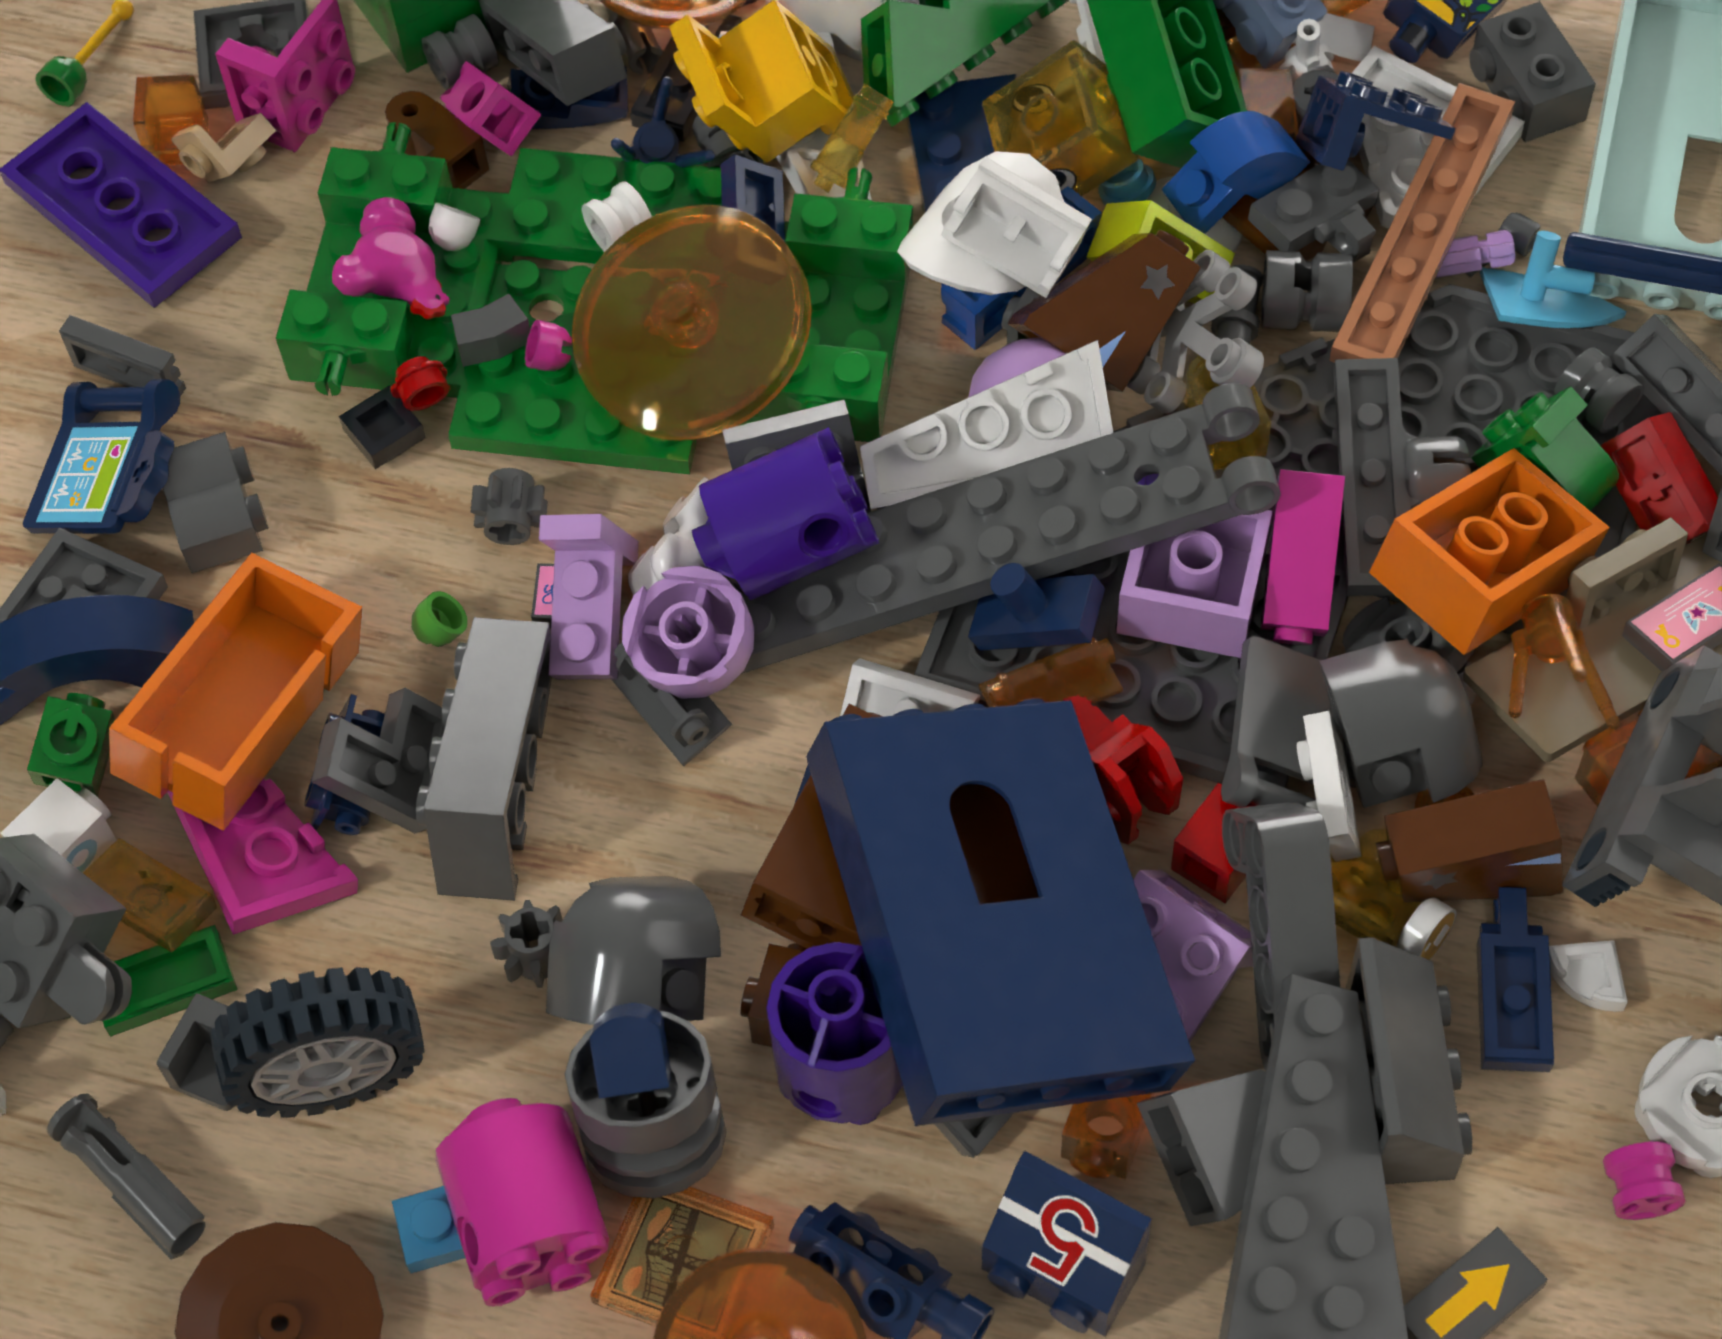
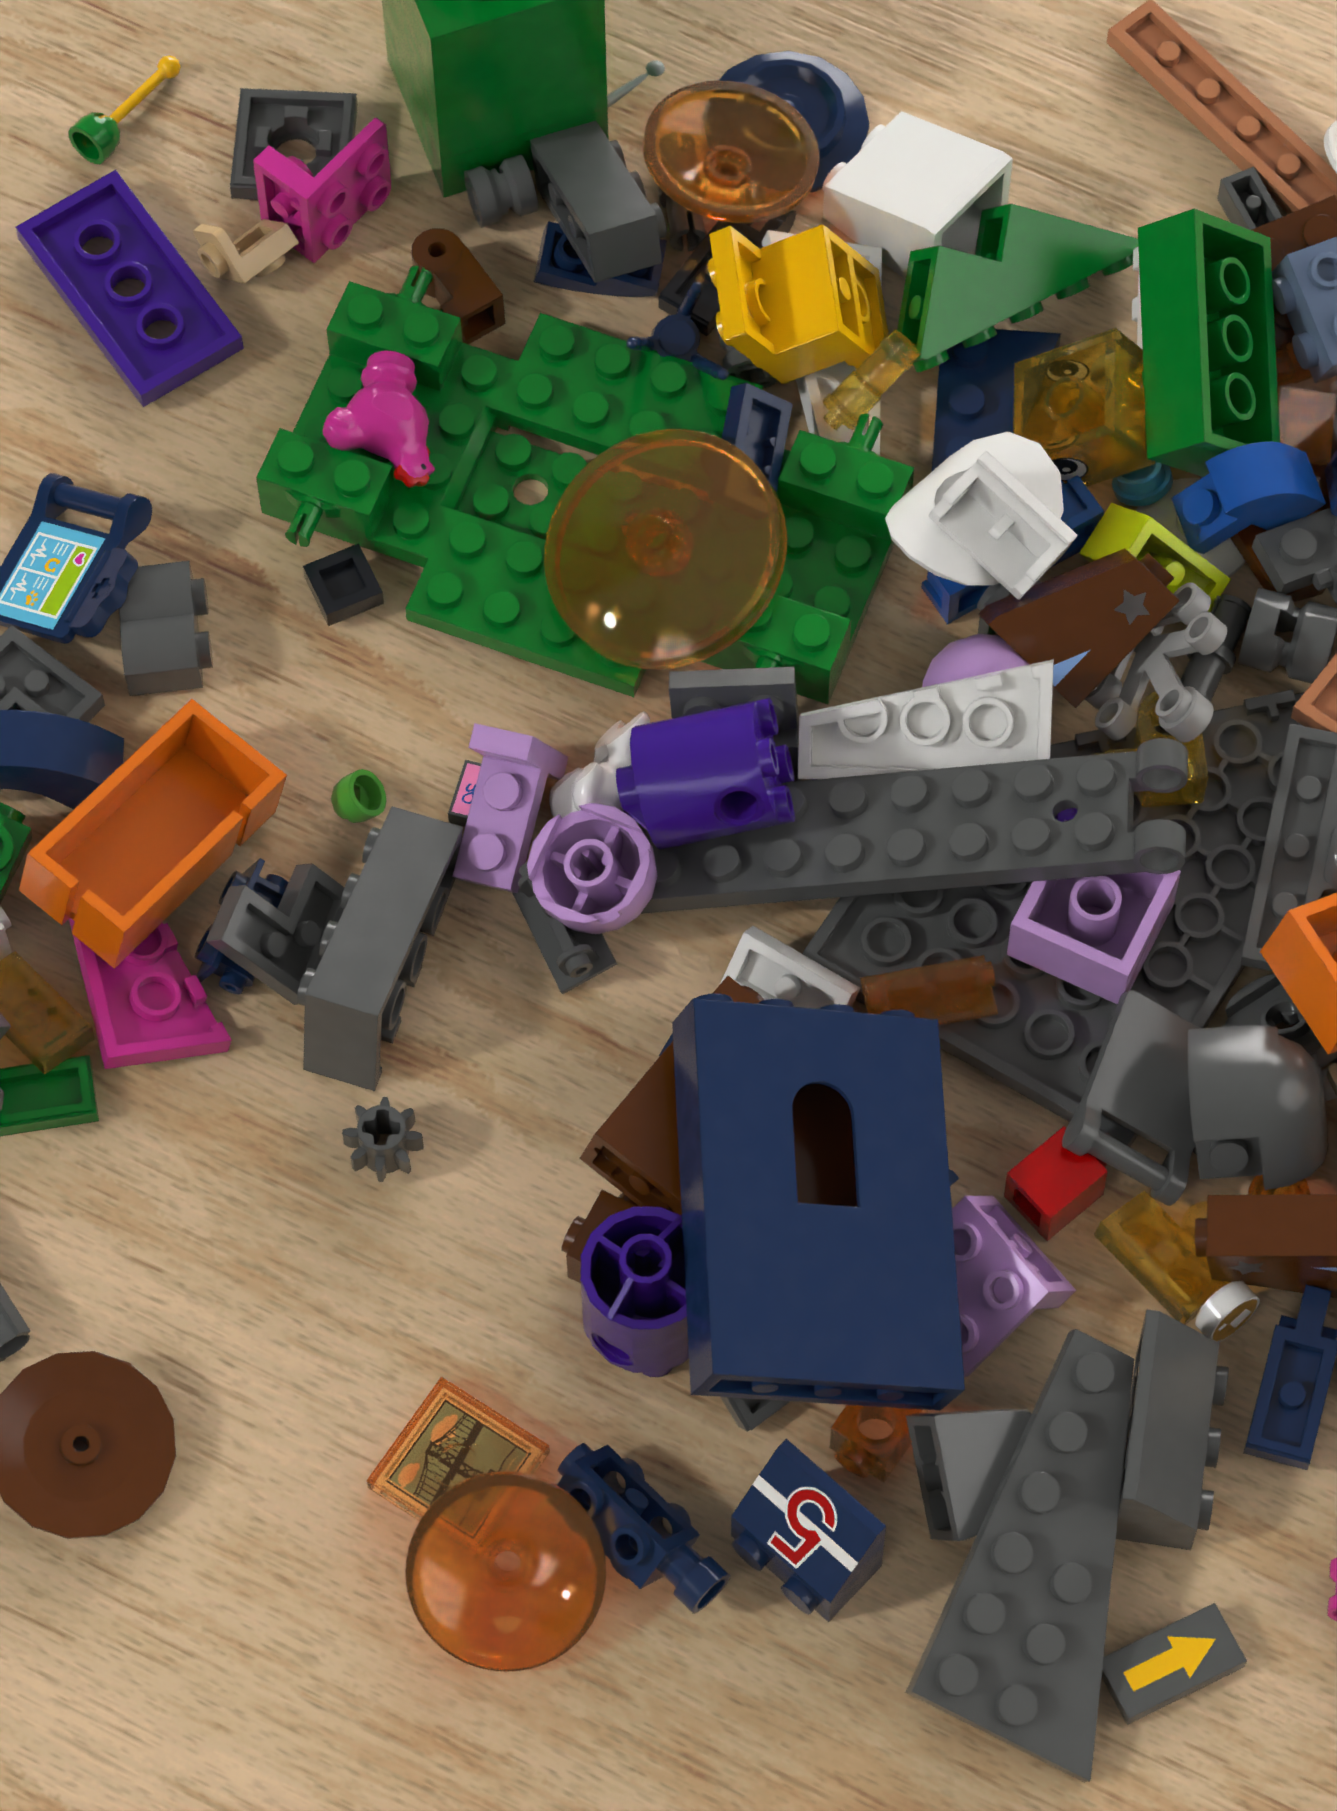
camera: 10 degrees right, 5 degrees up
(117, 355) = (100, 456): dark grey tile -> none
(164, 108) = (194, 197): clear orange panel -> none
(188, 1055) = (65, 1178): dark grey panel -> none
(317, 1042) = (164, 1194): black wheel -> none
(420, 383) = (388, 550): red plate -> none
(427, 1230) = (237, 1386): dark azure plate -> none
(452, 227) = (453, 391): white hinge -> none
(490, 109) = (516, 264): dark pink leg -> none
(490, 331) = (468, 512): dark grey piece -> none
(508, 506) = (449, 696): dark grey gear -> none
(521, 1199) = (321, 1379): dark pink cylinder -> none
(545, 346) = (518, 540): dark pink hinge -> none
(615, 214) = (617, 416): white wheel -> none
(630, 1050) = (448, 1267): dark blue piece -> none
(632, 945) = (473, 1171): dark grey brick -> none
(653, 1138) = (454, 1316): dark grey wheel -> none
(1036, 611) = (931, 920): dark blue tile -> none
(1130, 766) = (976, 1090): red hinge -> none
(1289, 900) = (1095, 1254): dark grey beam -> none
(1302, 556) = (1202, 920): dark pink slope -> none
(1325, 762) = (1168, 1130): white plate -> none

